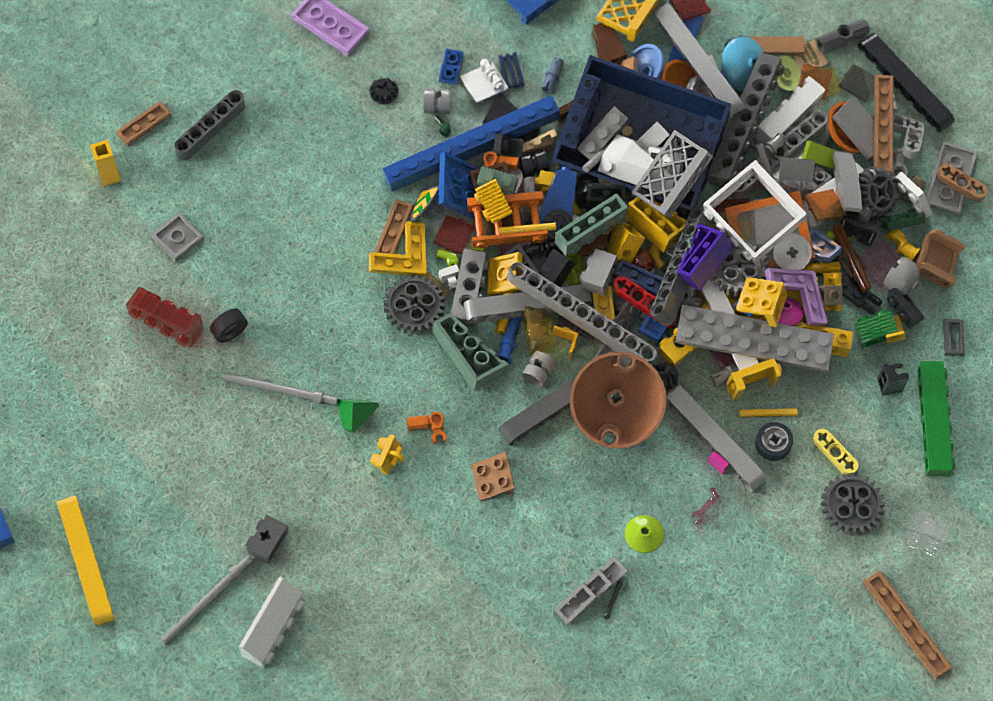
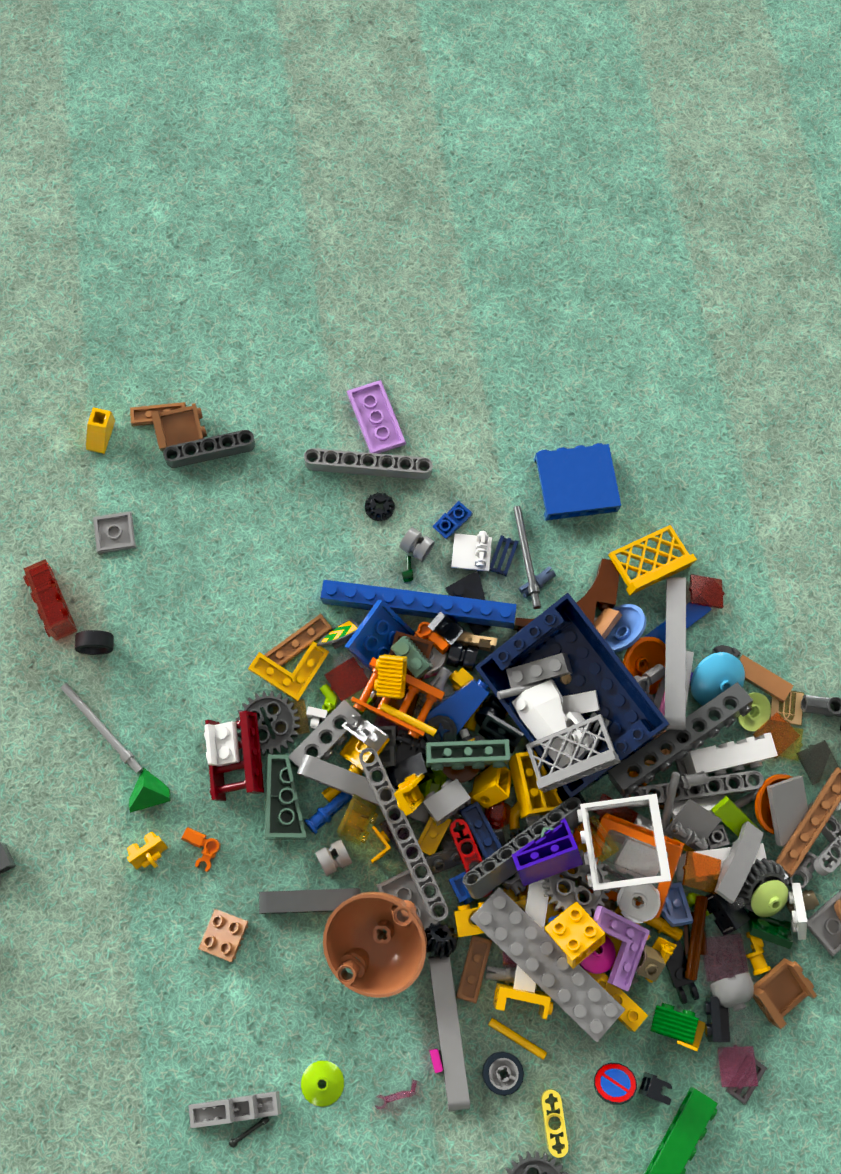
camera: 30 degrees right, 5 degrees up
(170, 121) = (178, 426): none -> medium nougat panel
(357, 55) = (361, 458): none -> light grey beam
(392, 336) = (222, 744): none -> white bracket
(424, 336) = (251, 761): none -> dark red fence
(499, 261) = (366, 733): none -> light grey hinge
(554, 79) = (533, 588): none -> bar
(568, 283) = (409, 794): none -> yellow bracket
(701, 384) = (474, 969): none -> medium nougat tile
(861, 396) = (615, 1083): none -> piece
(886, 197) = (769, 898): none -> yellowish green dish
(941, 331) = (737, 1066): none -> clear pink piece

